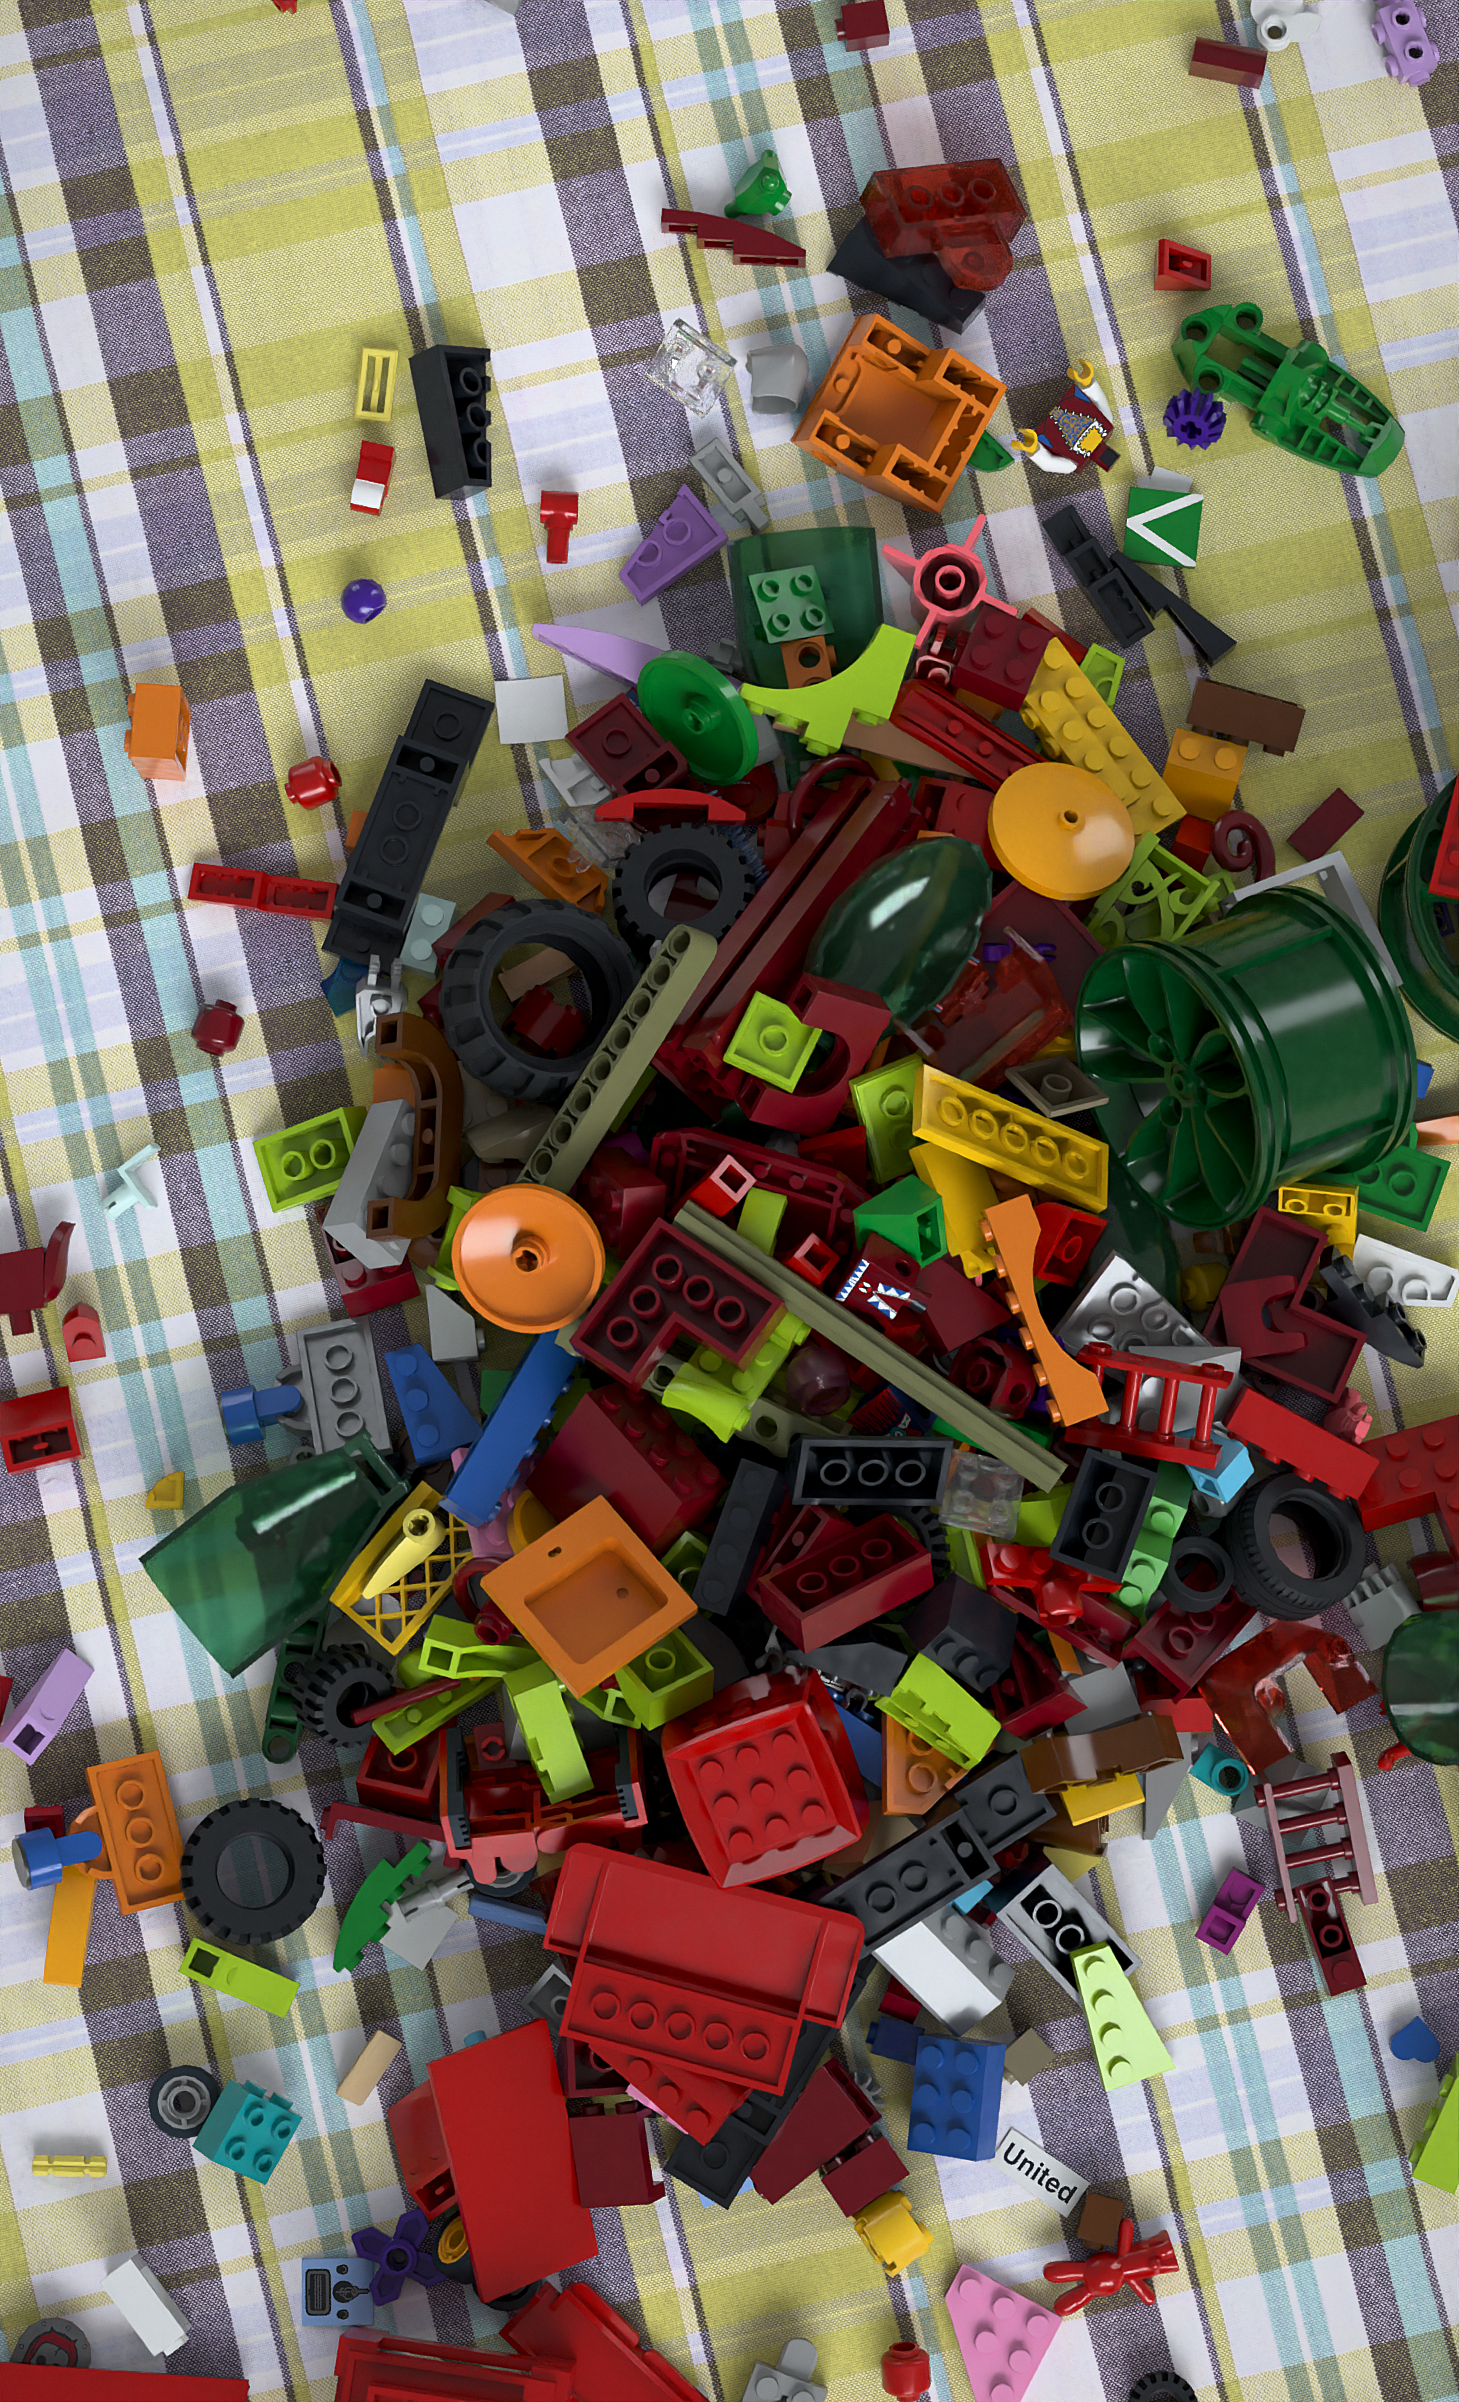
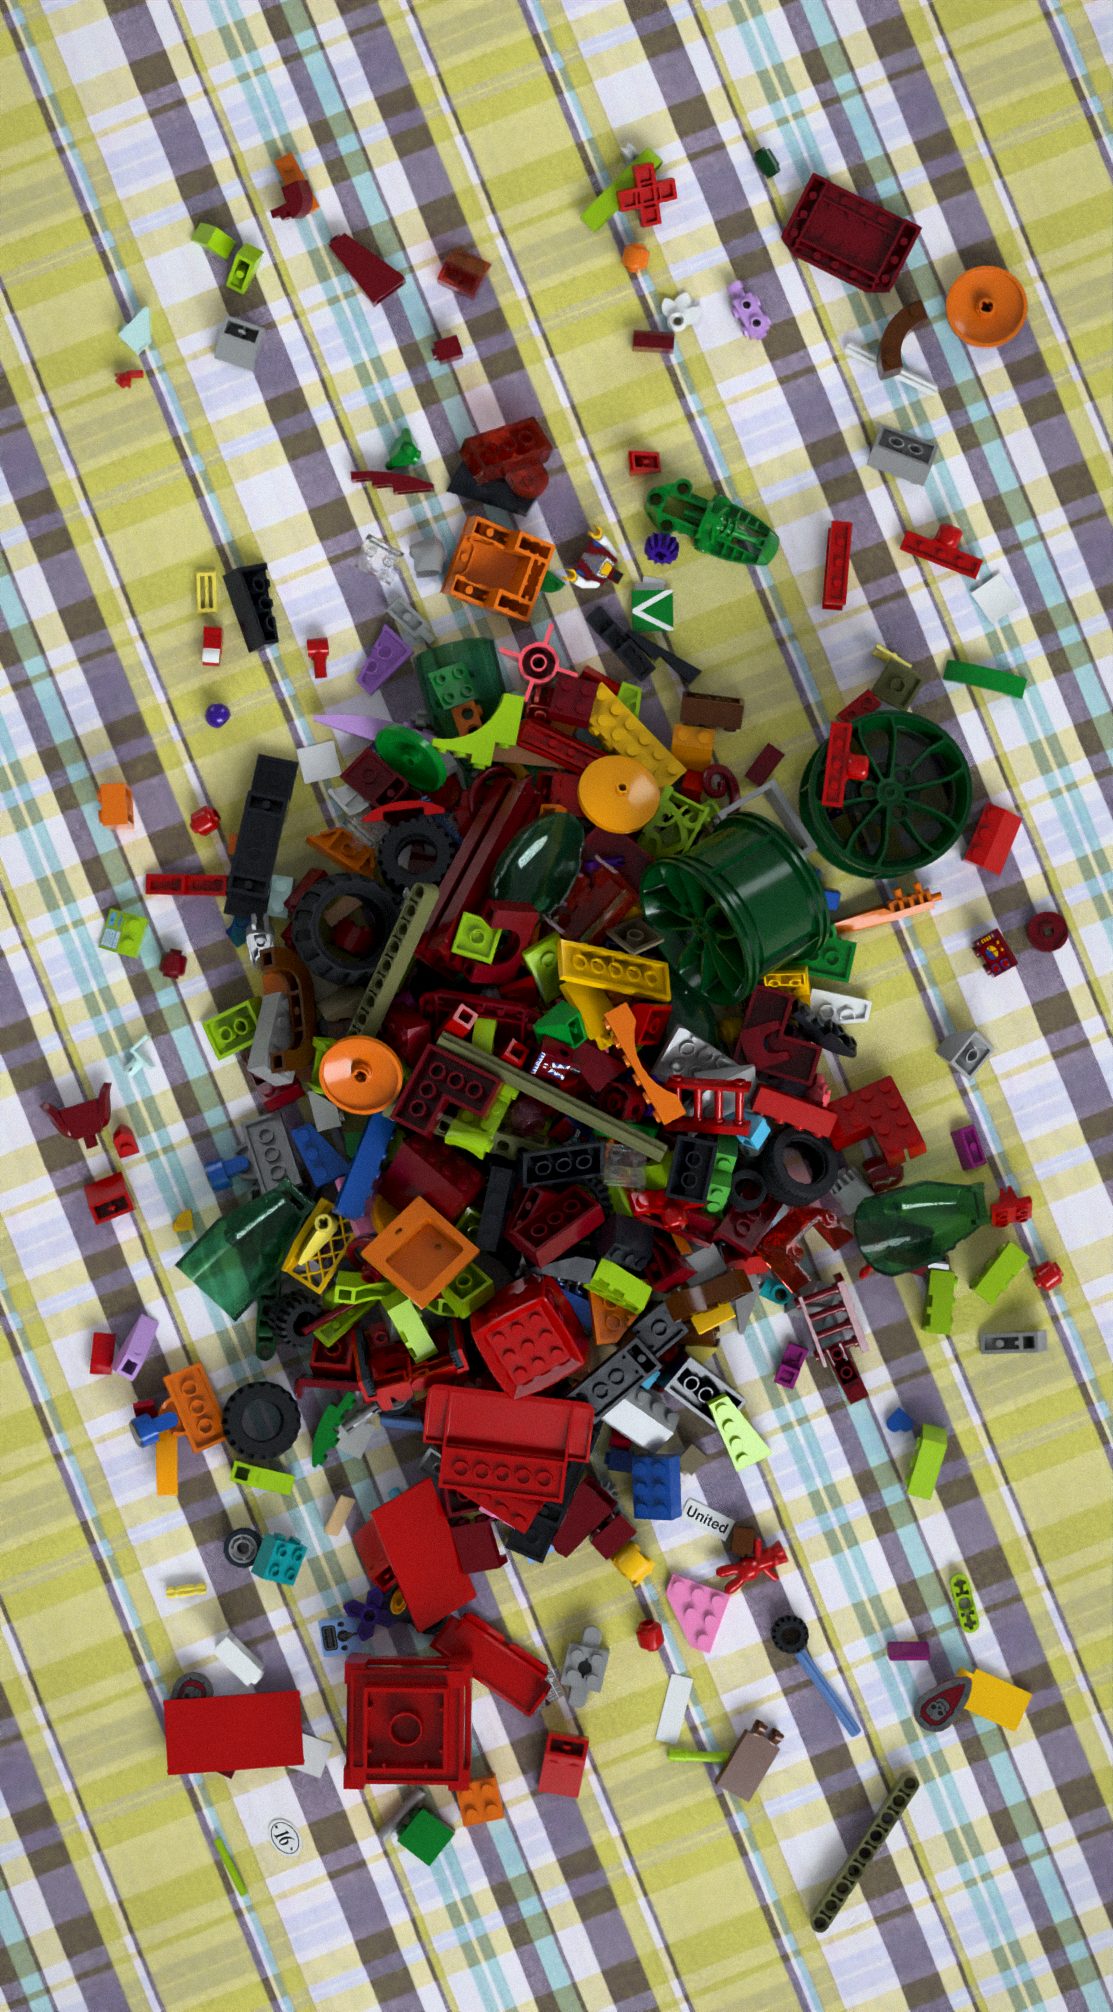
camera: 10 degrees left, 5 degrees up
(139, 962) = (124, 933): none -> lime slope

